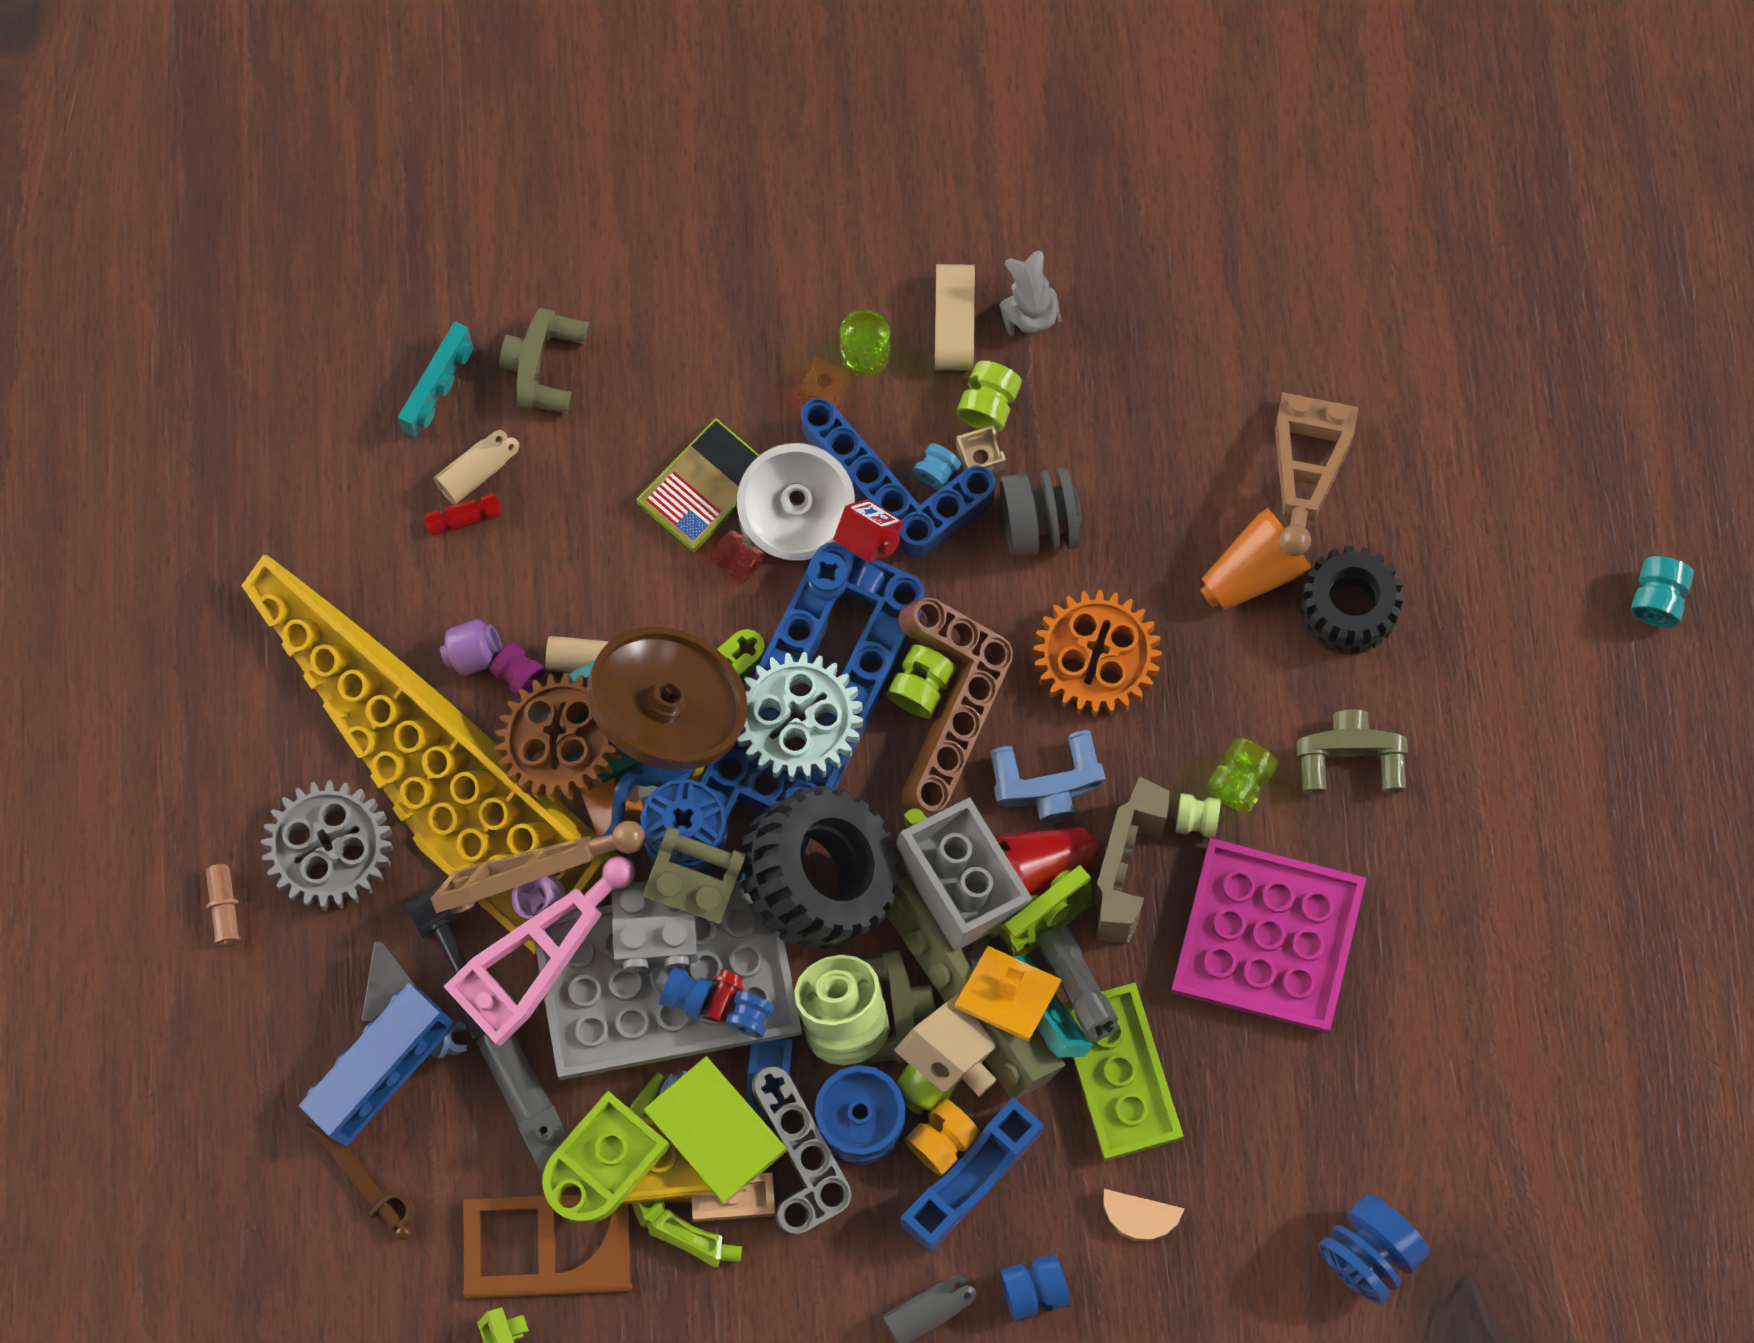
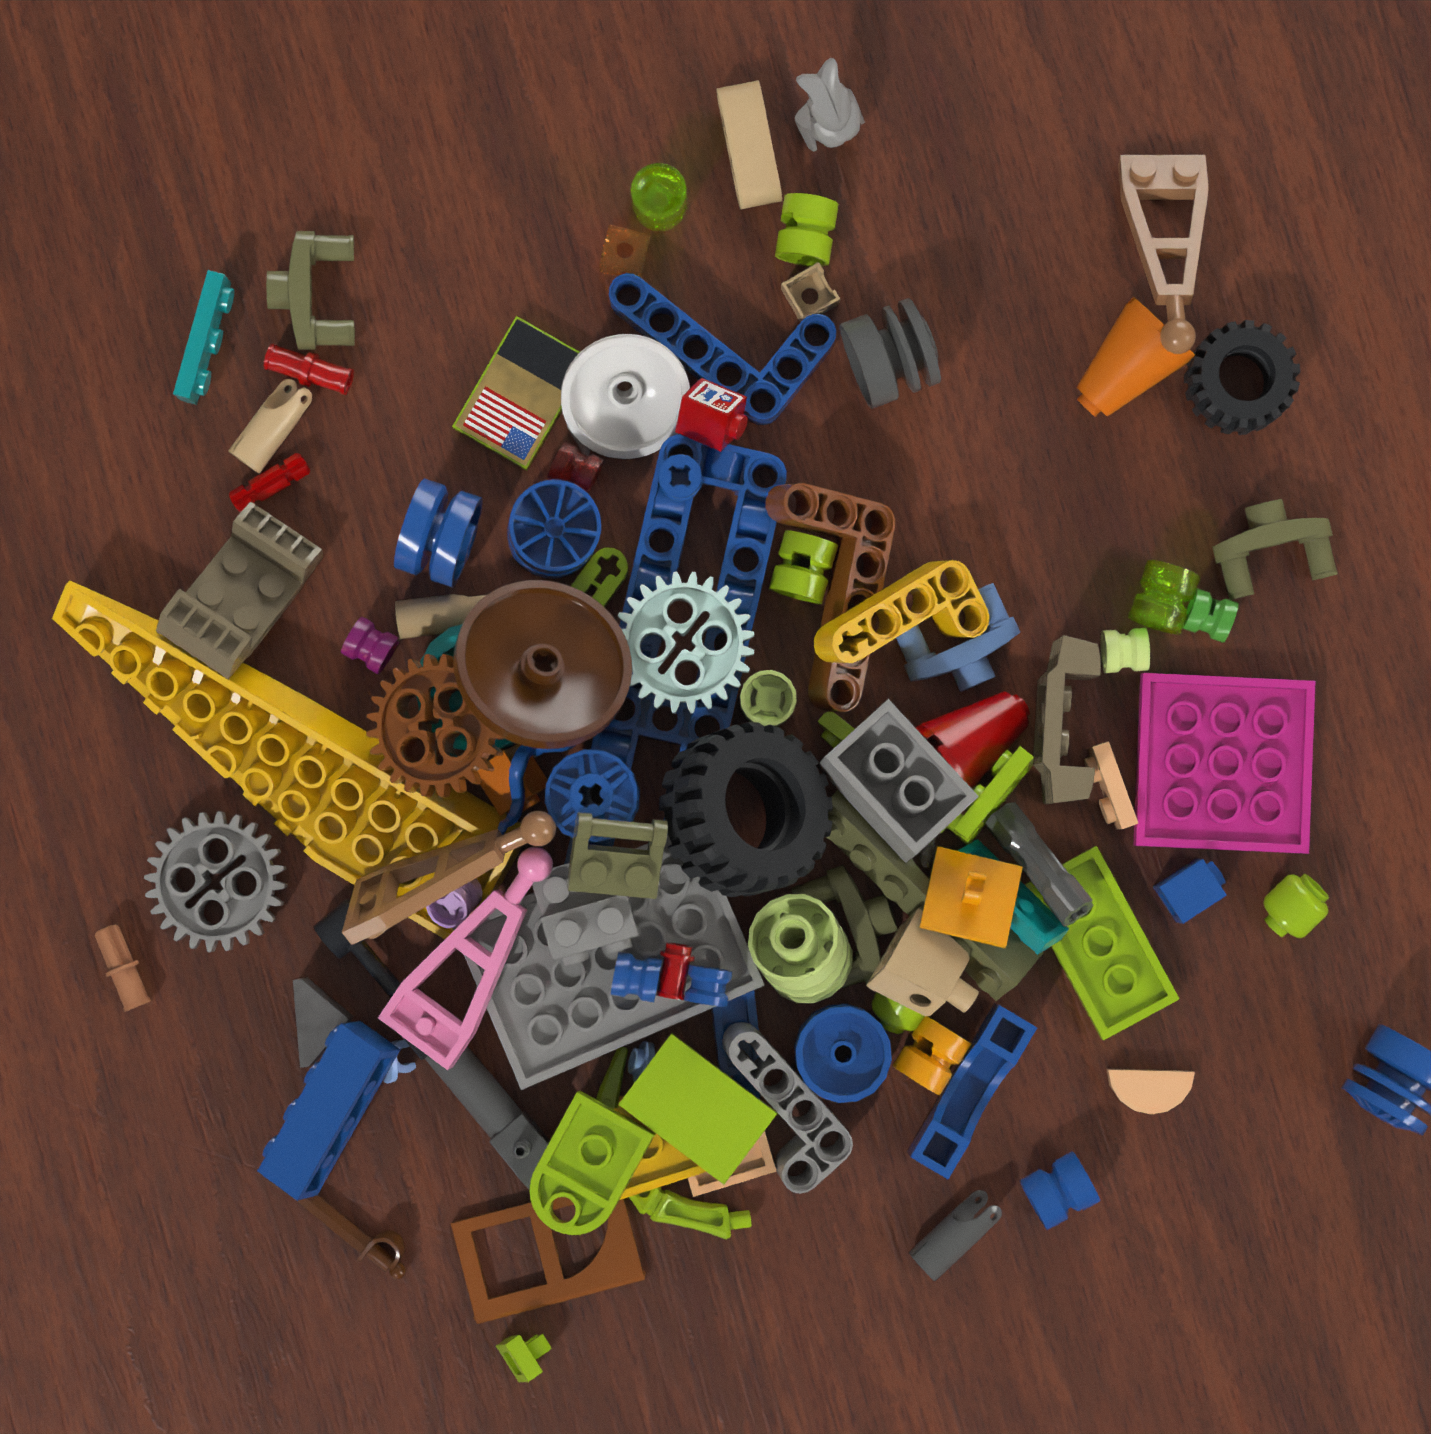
camera: 15 degrees left, 15 degrees up
(415, 596) = (240, 591): none -> dark tan plate
(470, 647) = (315, 632): medium lavender head -> none
(521, 425) = (308, 369): none -> red pin
(601, 581) = (438, 532): none -> blue wheel
(706, 597) = (553, 529): none -> blue wheel
(867, 780) = (768, 698): none -> yellowish green wheel
(936, 466) = (767, 321): dark azure wheel -> none
(993, 734) = (896, 618): none -> yellow beam
(1064, 643) = (1021, 498): orange gear -> none
(1161, 948) = (1116, 803): none -> light nougat plate
(1214, 1040) = (1191, 889): none -> blue brick
(1281, 801) = (1210, 615): none -> bright green wheel
(1308, 1076) = (1296, 906): none -> lime head

